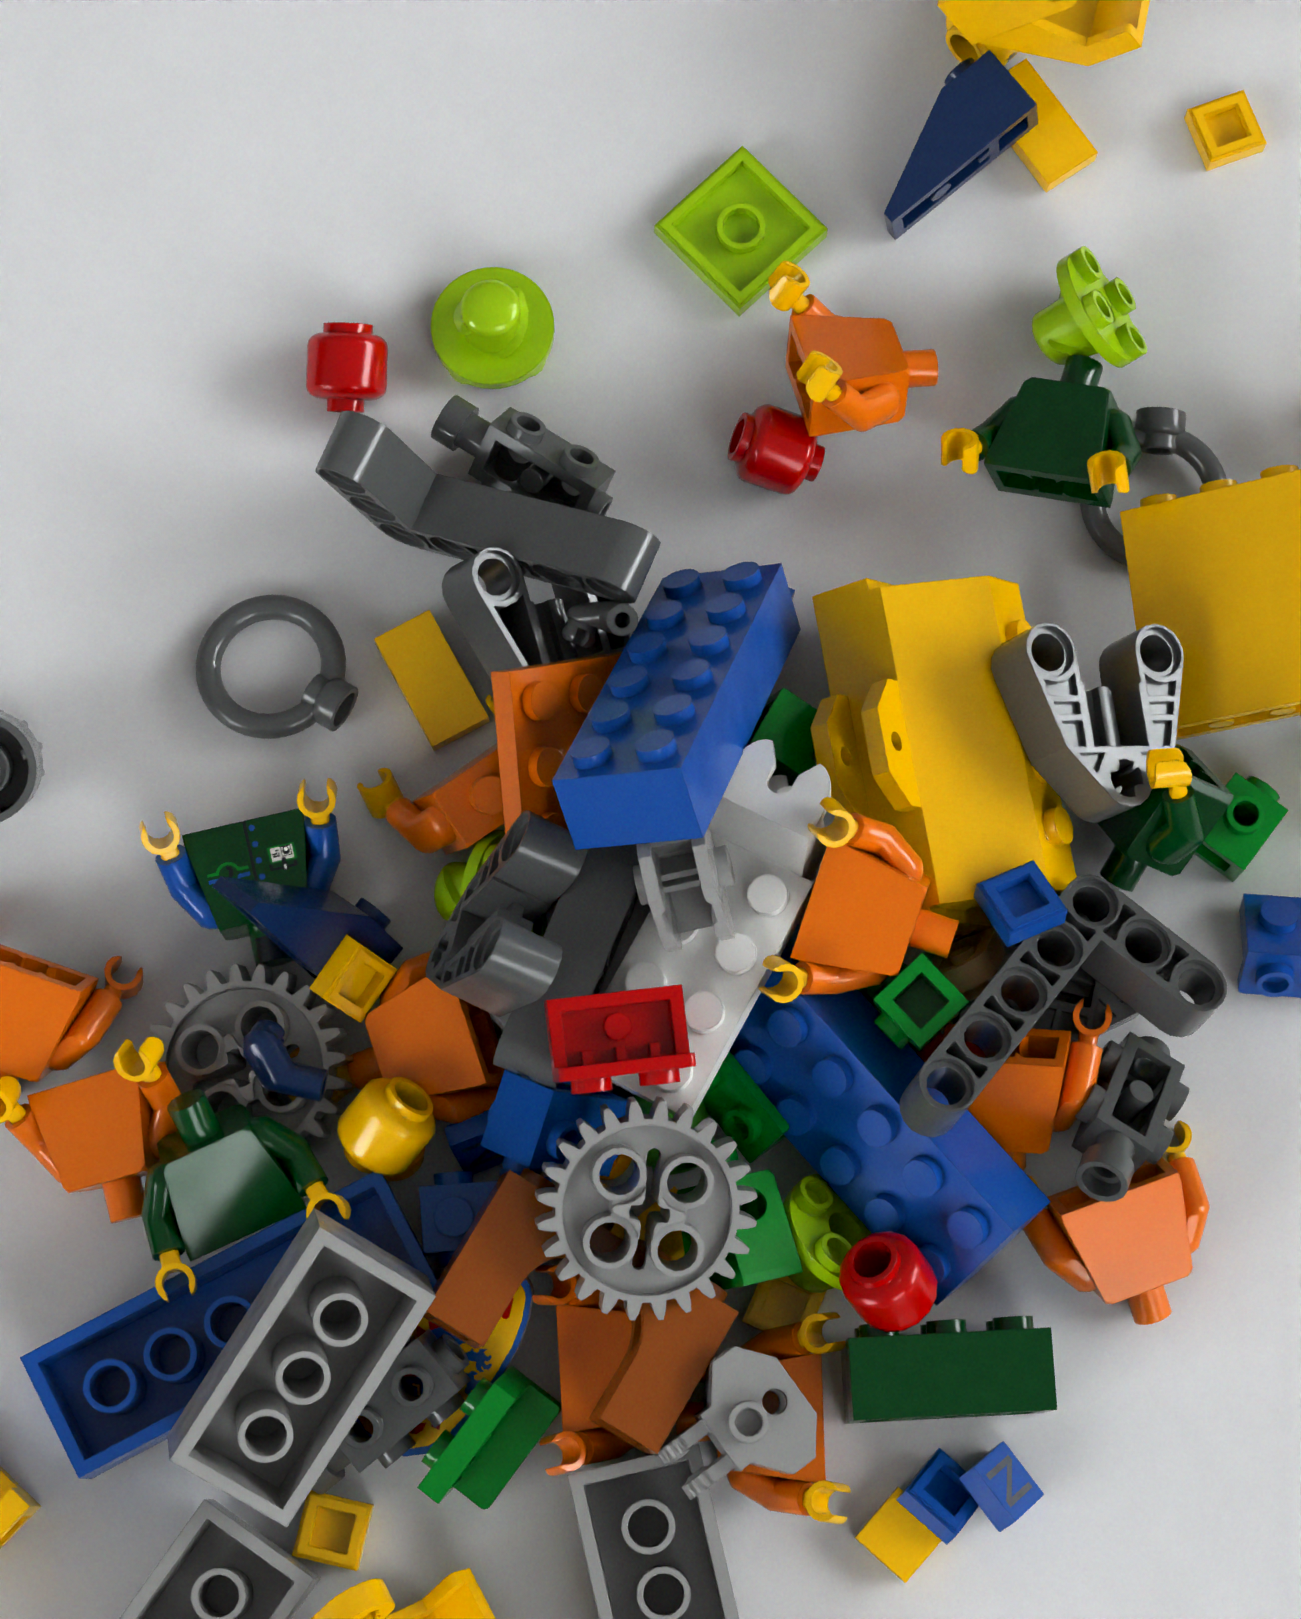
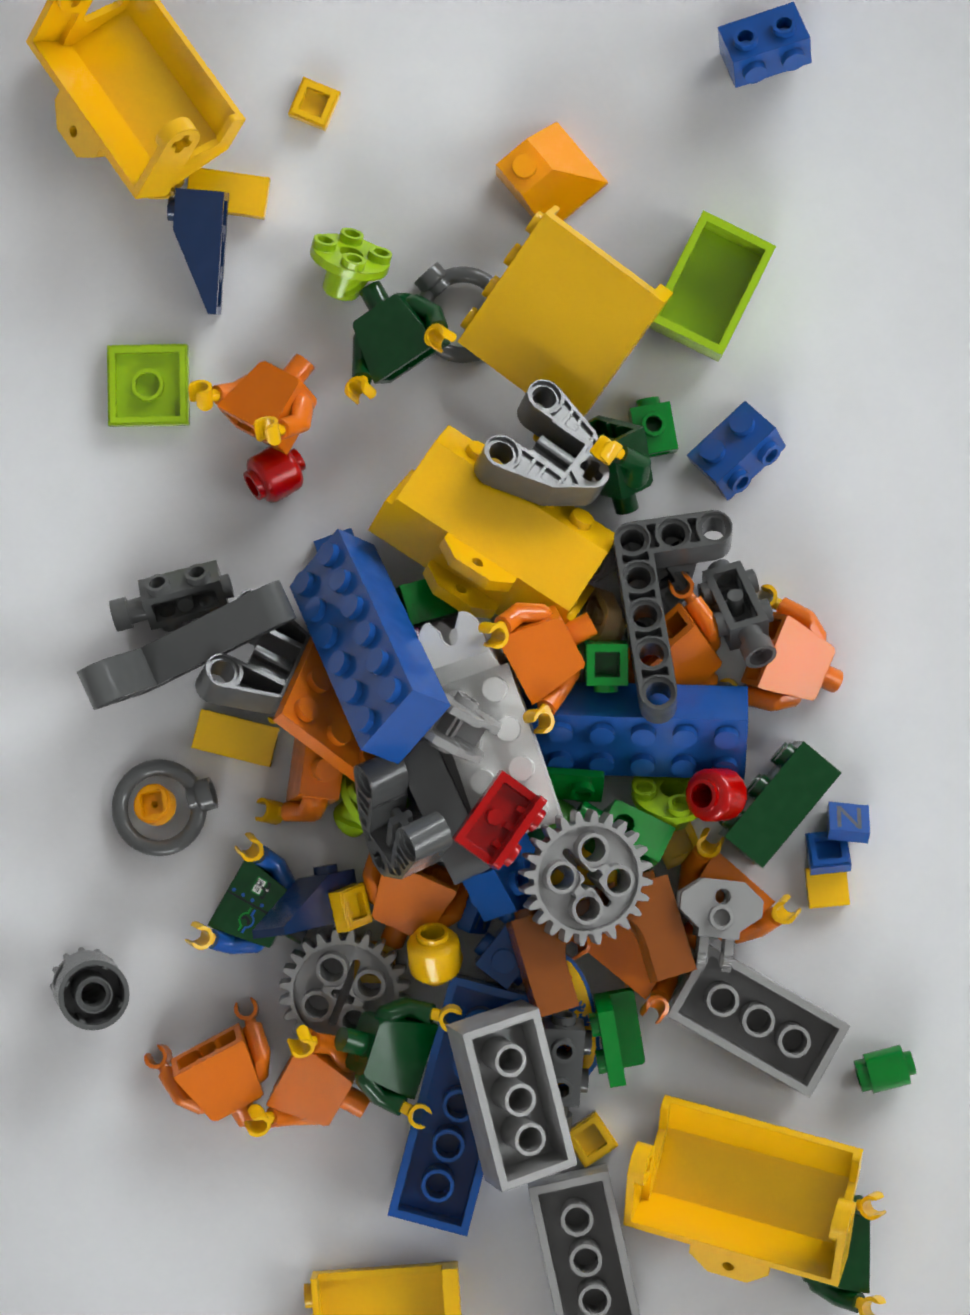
camera: 45 degrees left, 10 degrees up
(269, 657) = (154, 804): none -> light orange tile
(274, 1067) = (359, 981): dark blue arm -> none
(346, 366) = (44, 639): red head -> none
(492, 328) = (87, 550): lime plate -> none
(604, 615) = (281, 642): dark grey arm -> none
(1020, 903) = (603, 575): blue tile -> none

